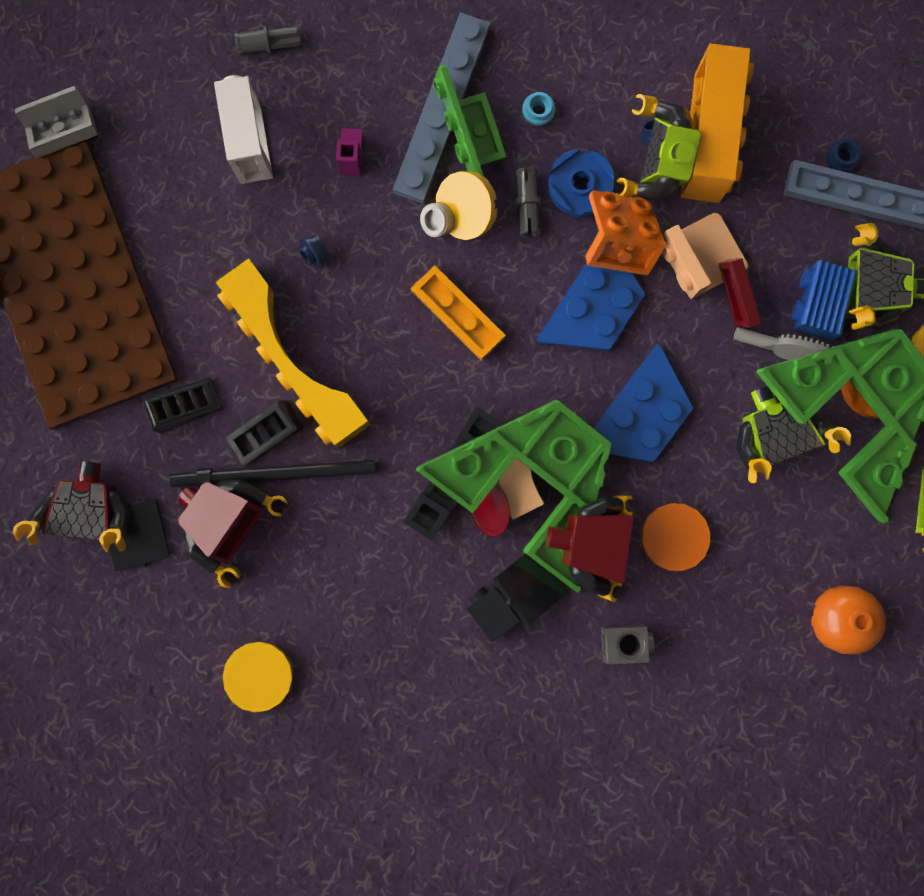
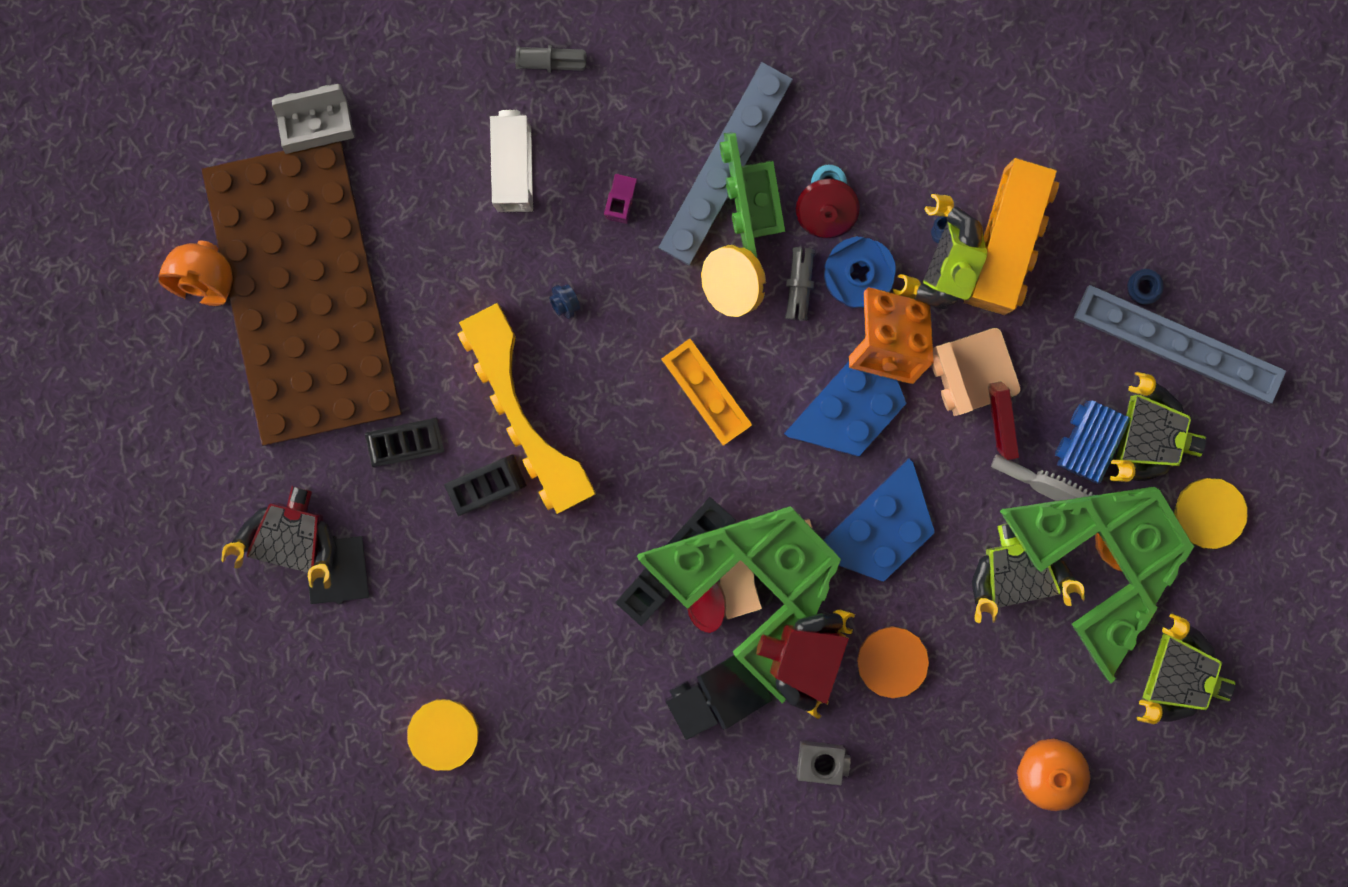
camera: 15 degrees right, 5 degrees up
(220, 520) = (428, 571): torso -> none
(272, 473) = (418, 523): black bar -> none
(437, 219) = (700, 288): light grey tile -> none
(541, 130) = (827, 208): none -> dark red piece

